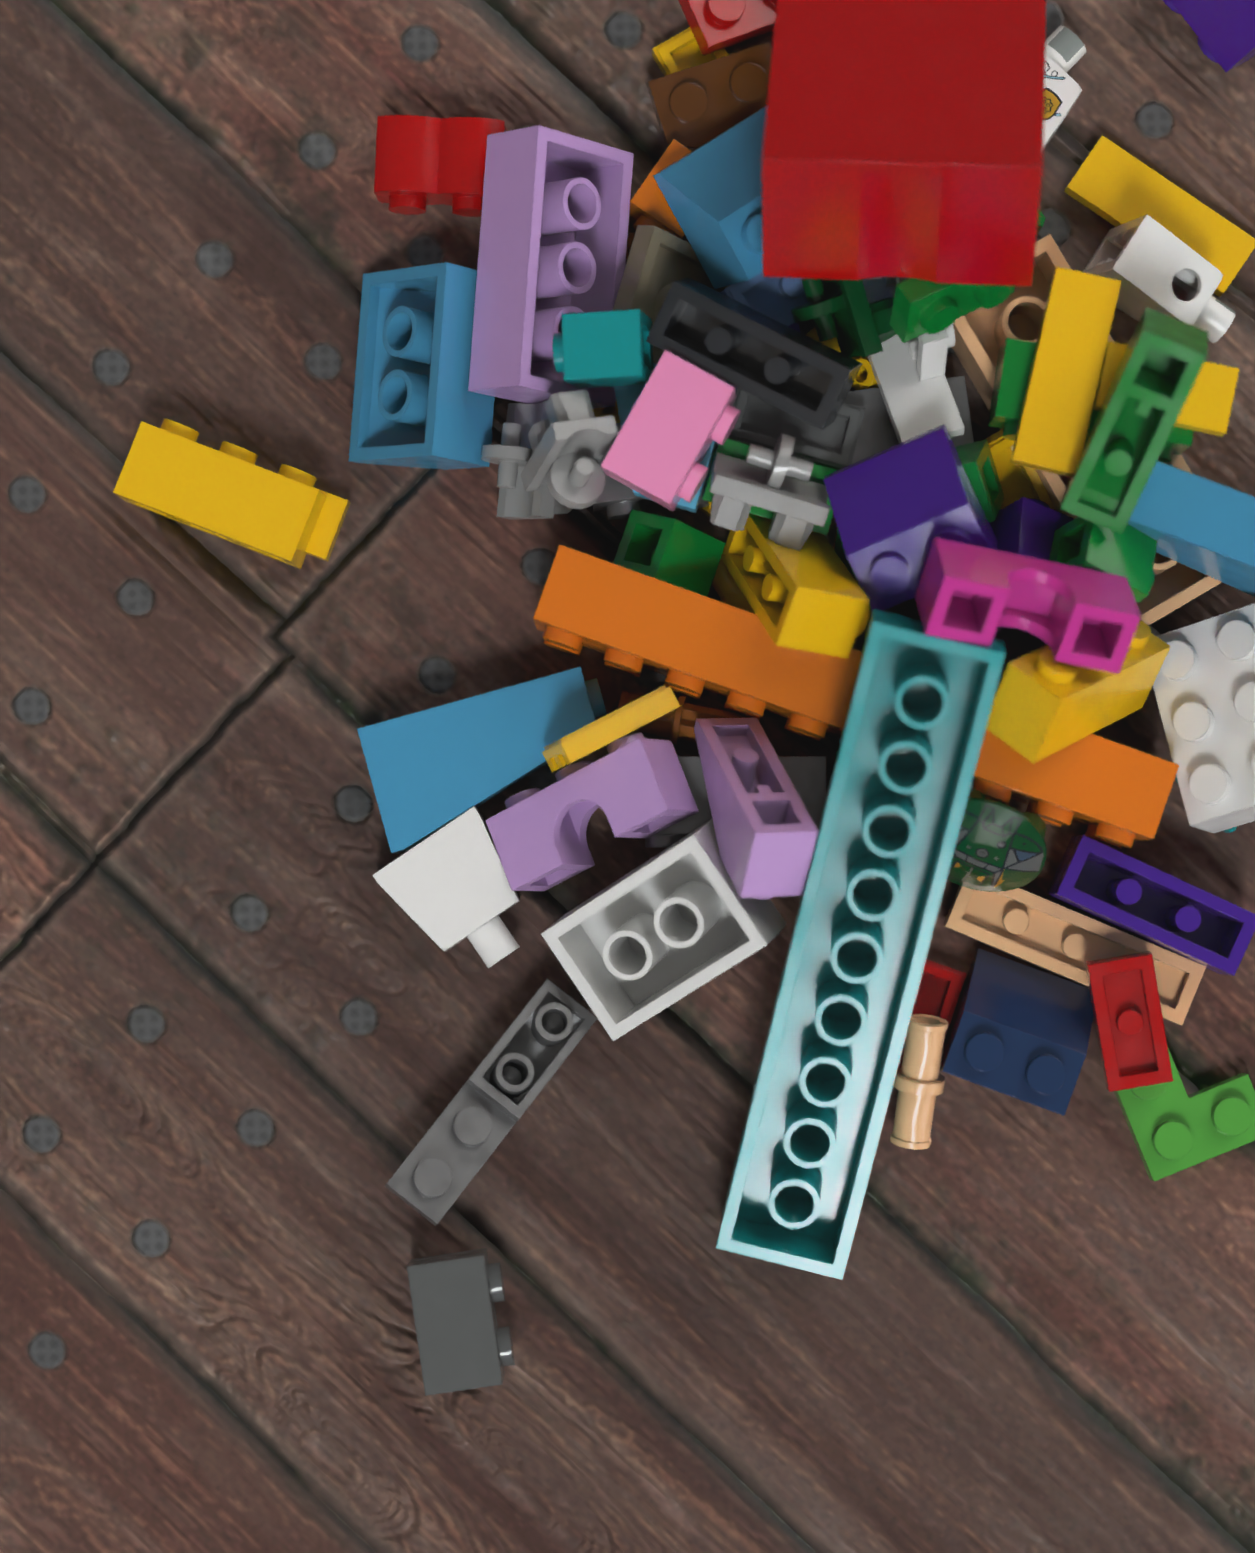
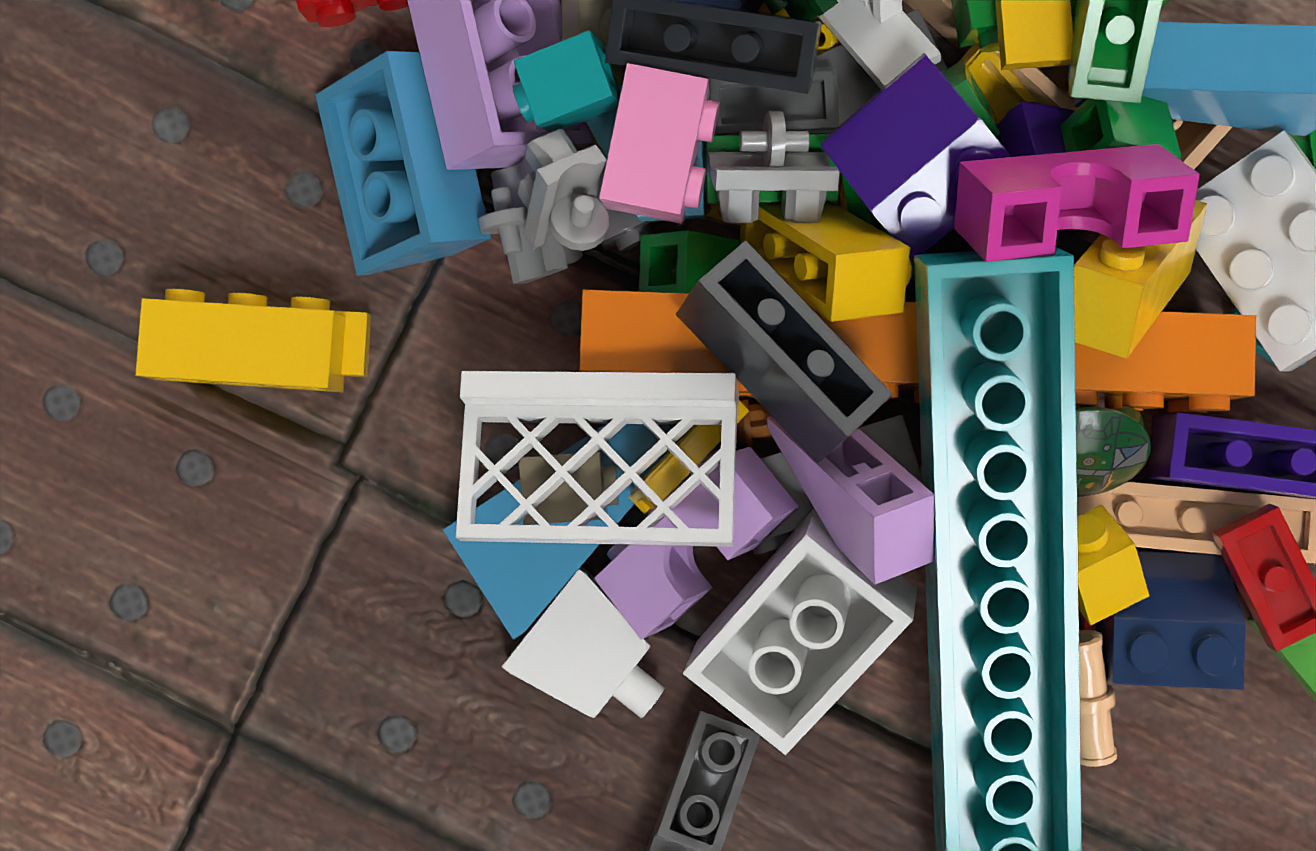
camera: 20 degrees left, 0 degrees up
(487, 725) = (564, 502): none -> dark tan brick
(541, 650) = (600, 399): none -> white fence
(722, 659) = (782, 352): none -> black brick
(965, 956) = (1107, 567): none -> yellow brick

